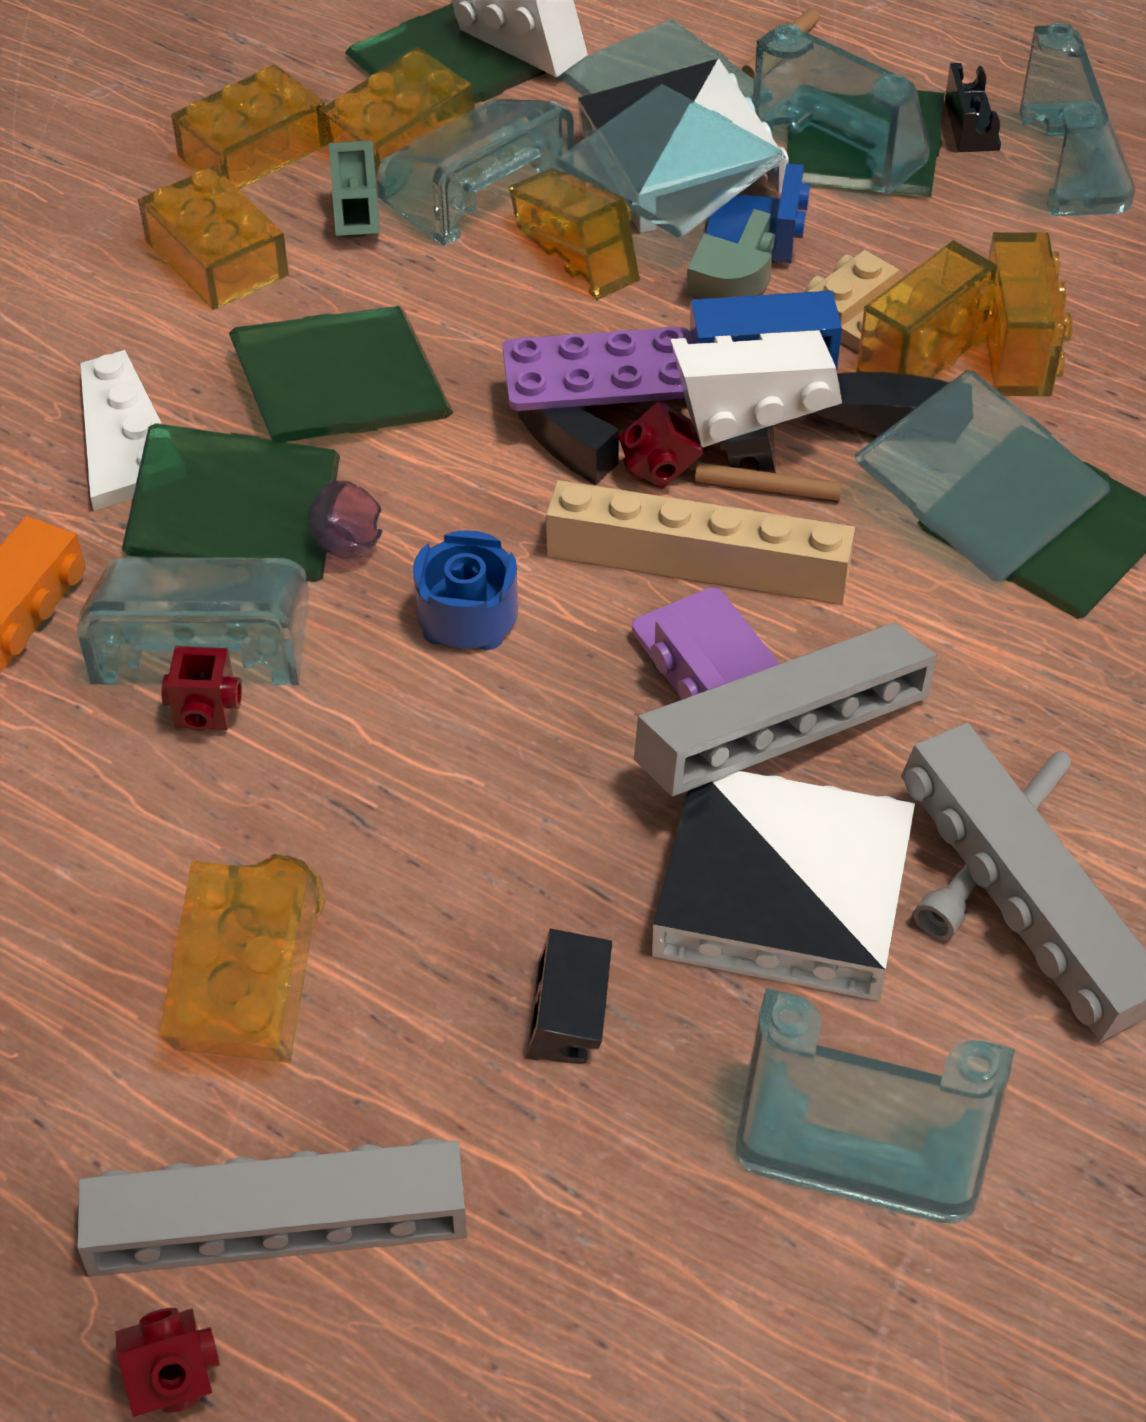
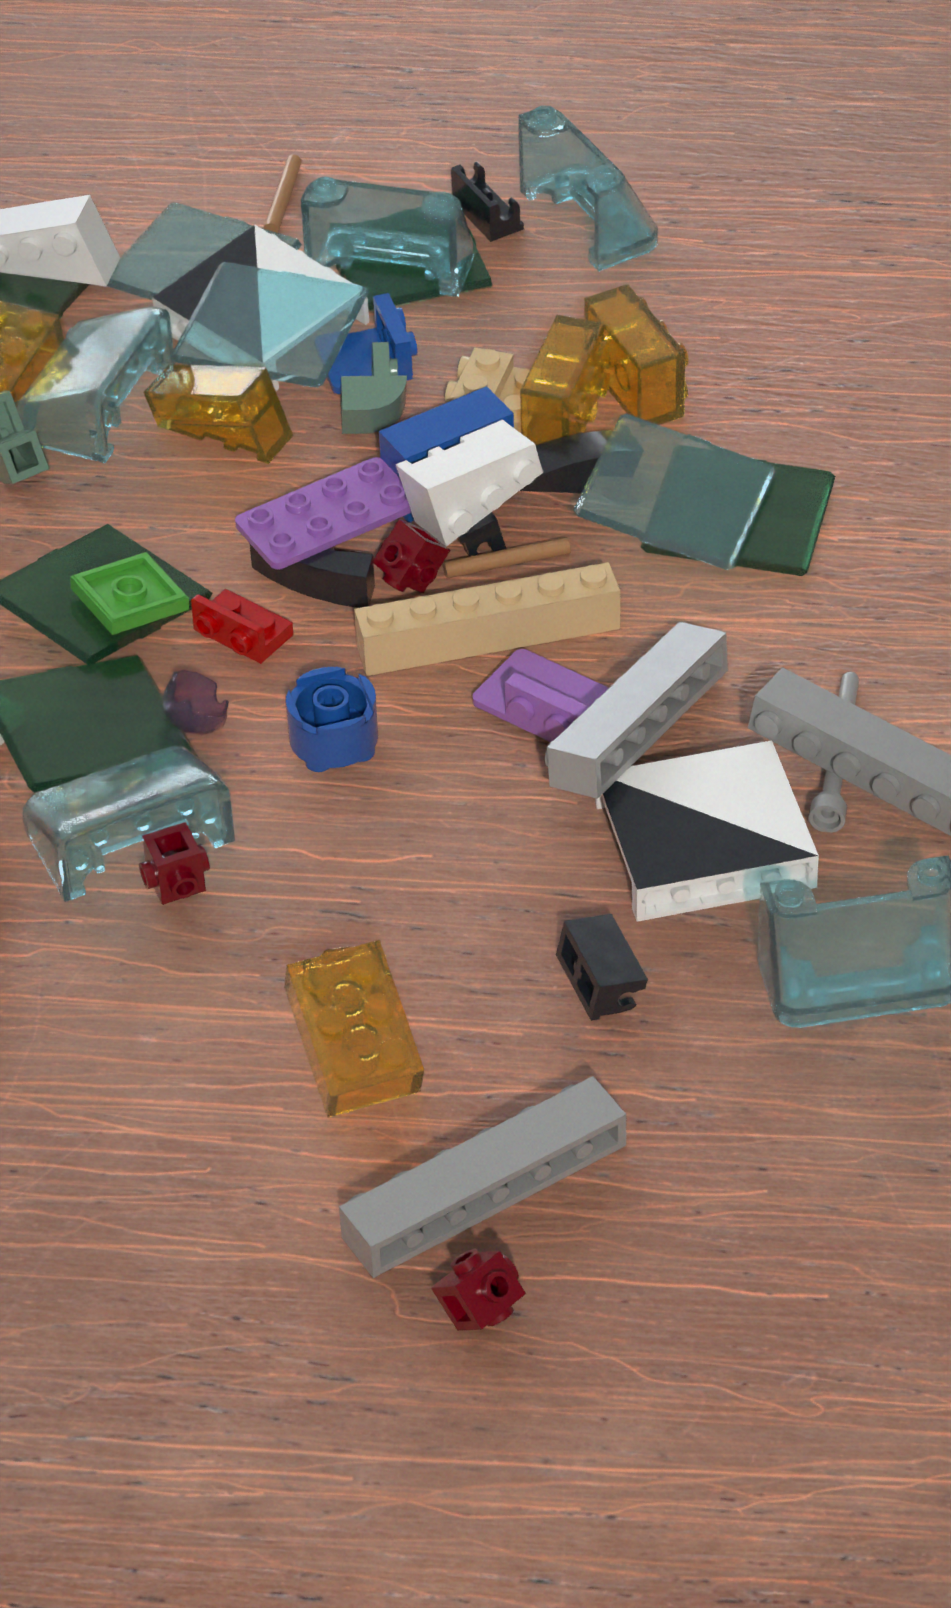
camera: 25 degrees left, 5 degrees down
(357, 382) = (129, 593): none -> bright green plate
(454, 455) = (240, 625): none -> red bracket

